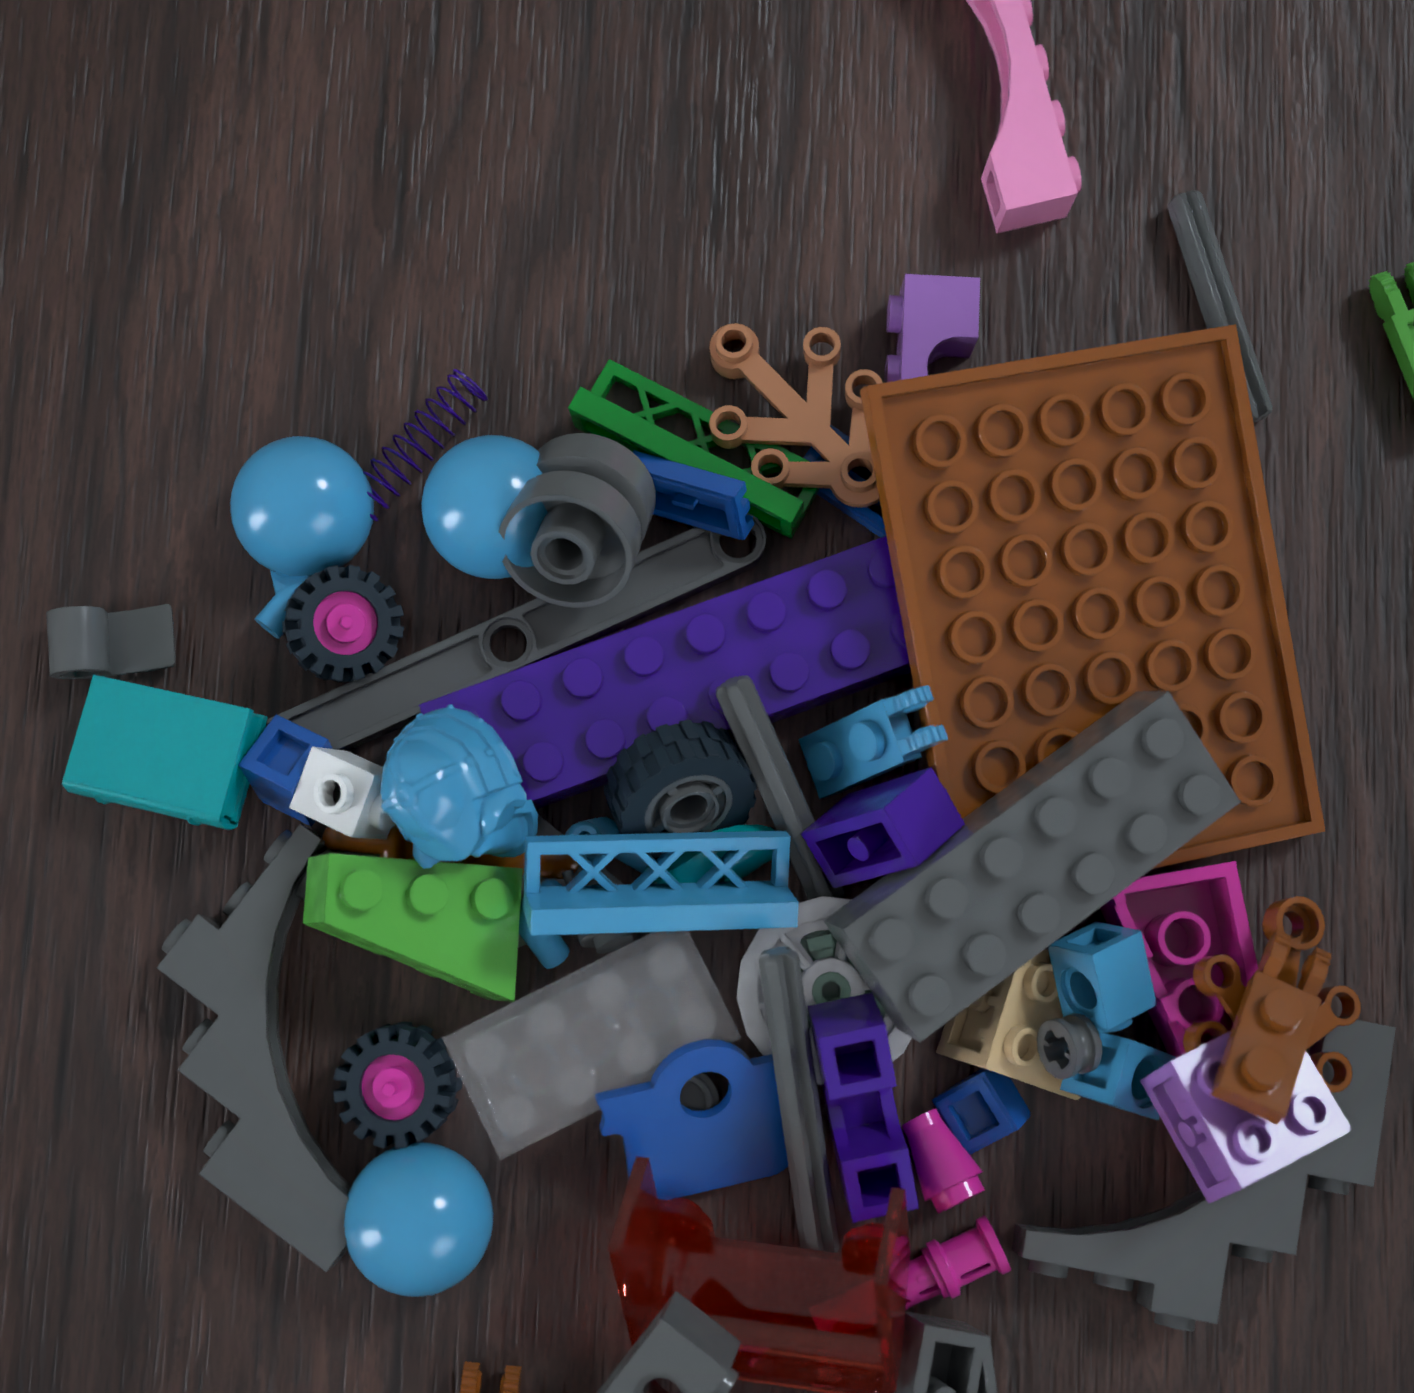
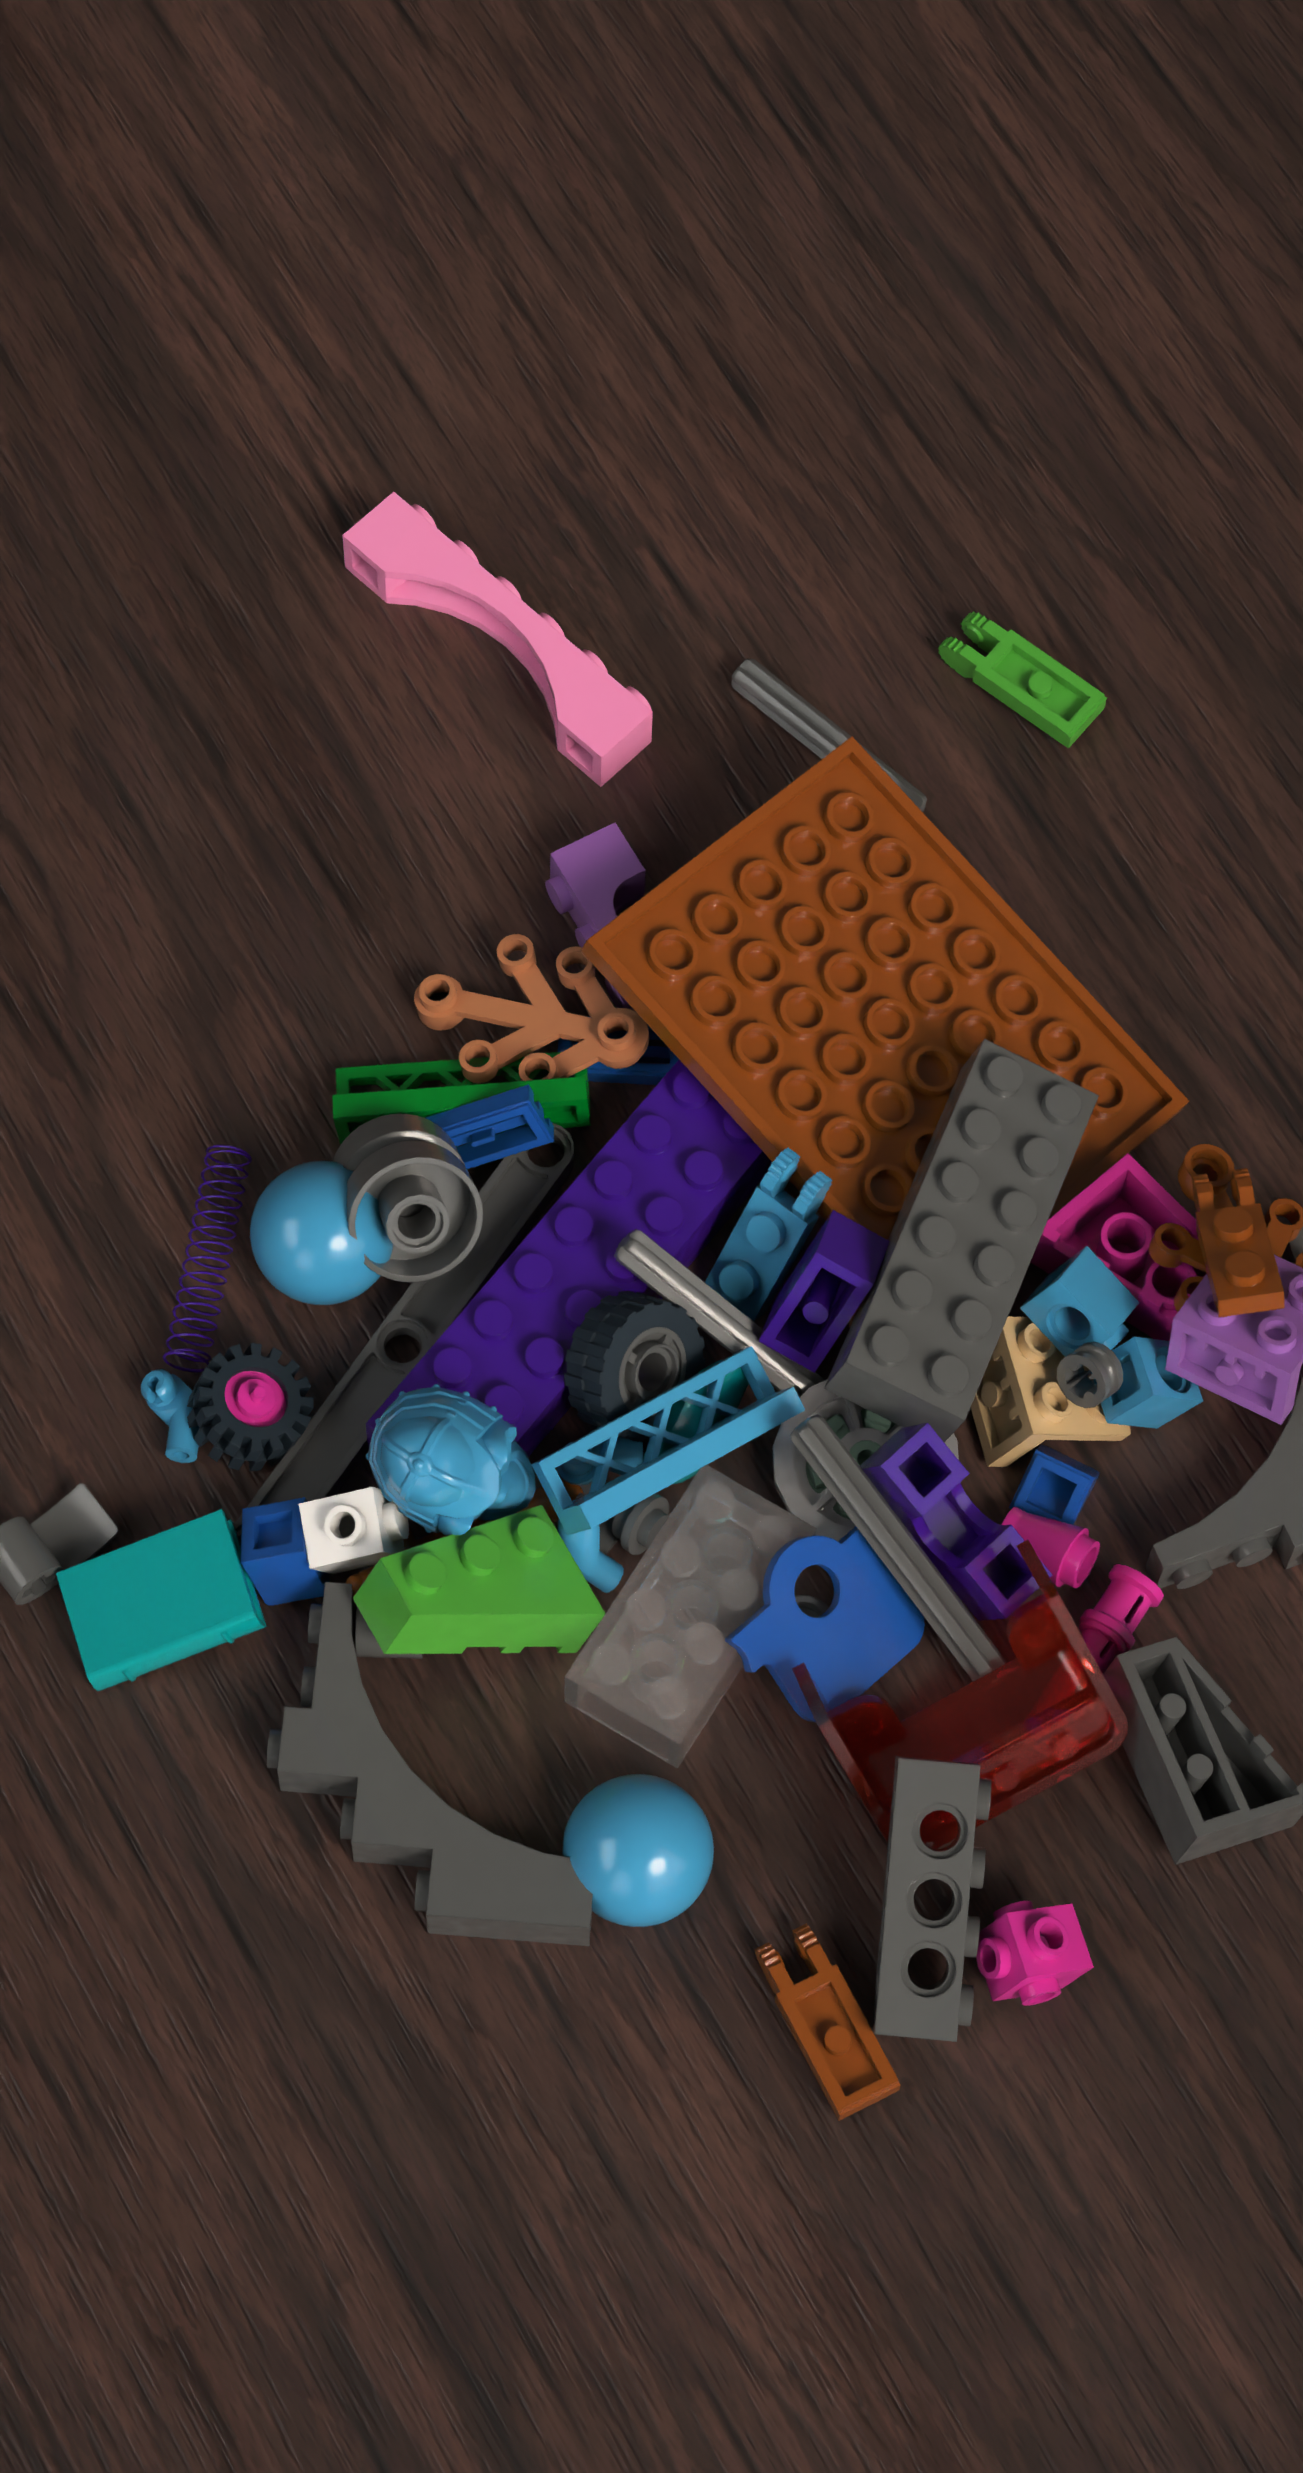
camera: 30 degrees left, 15 degrees down
(301, 506) = (146, 1334): dark azure piece -> none
(397, 1084) = (547, 1751): black wheel -> none

